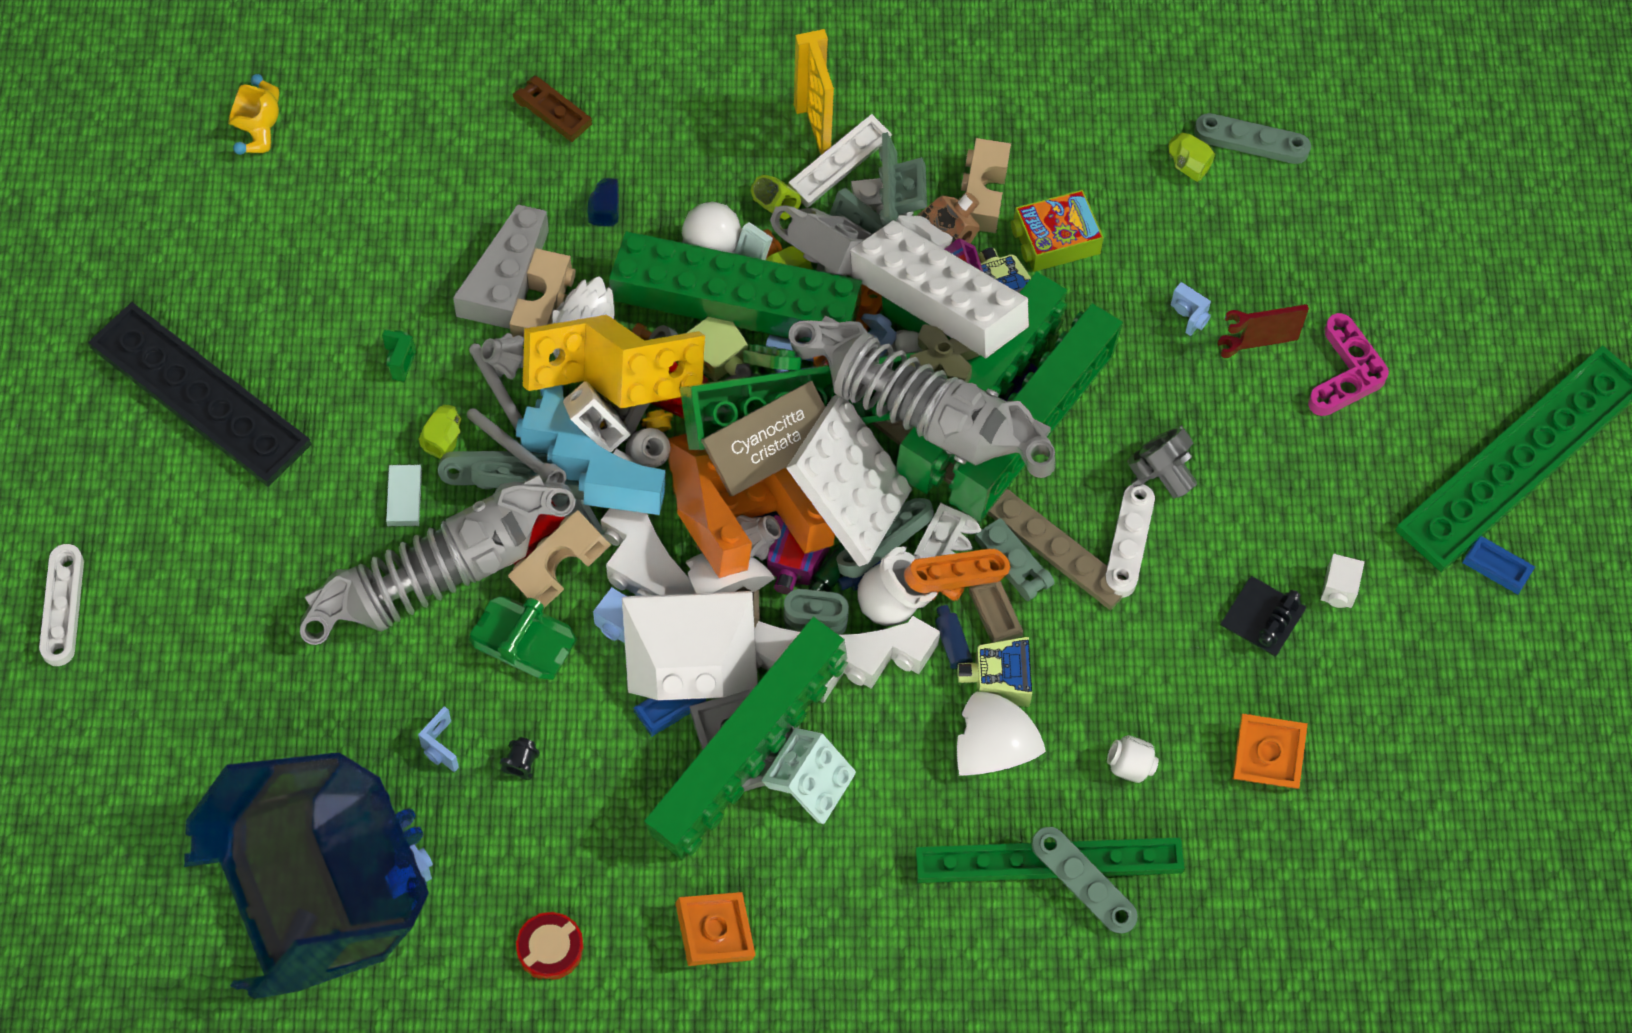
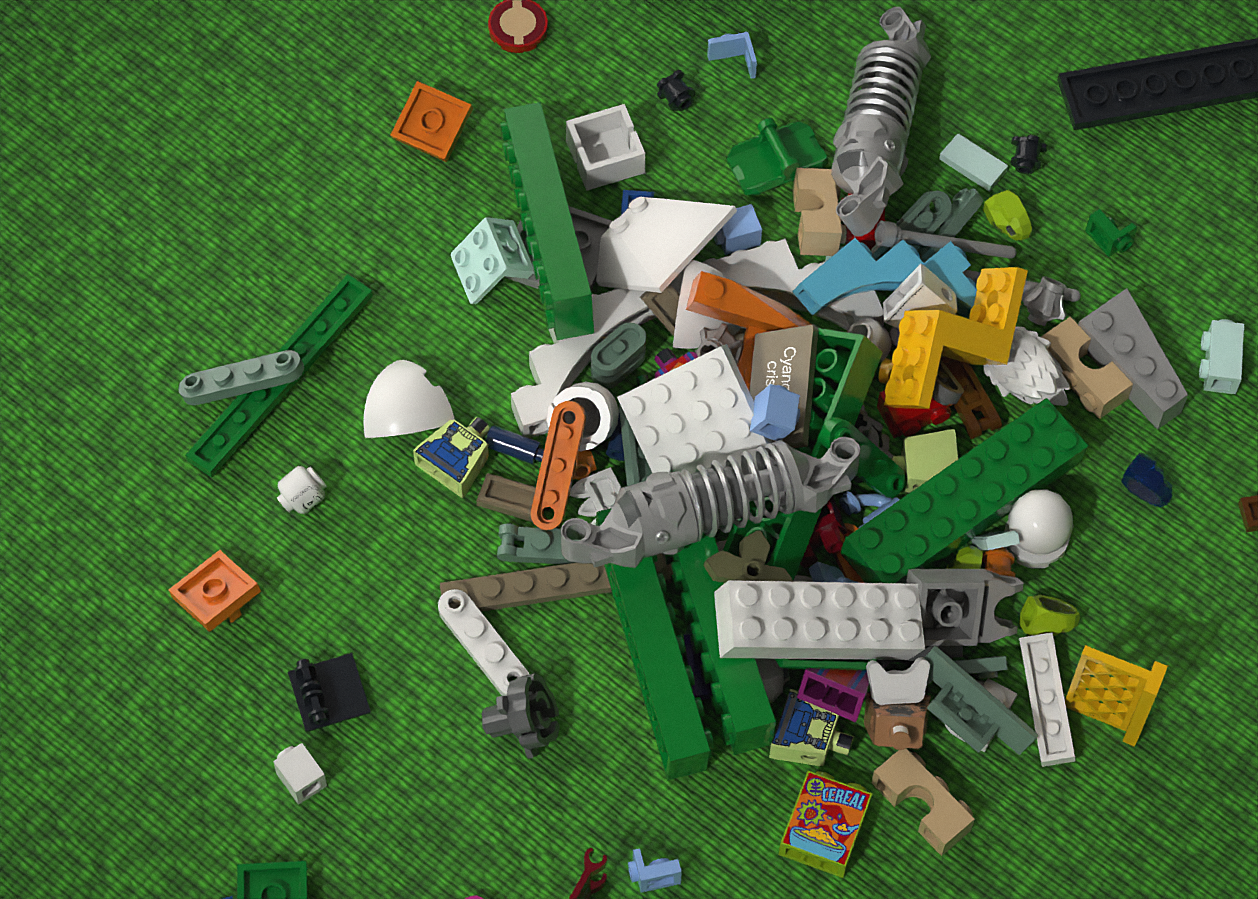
camera: 130 degrees right, 0 degrees up
(368, 455) = (1027, 153): none -> black brick
(452, 215) = (1223, 356): none -> light aqua brick
(631, 766) = (602, 147): none -> white piece
(809, 406) = (775, 412): none -> light blue brick

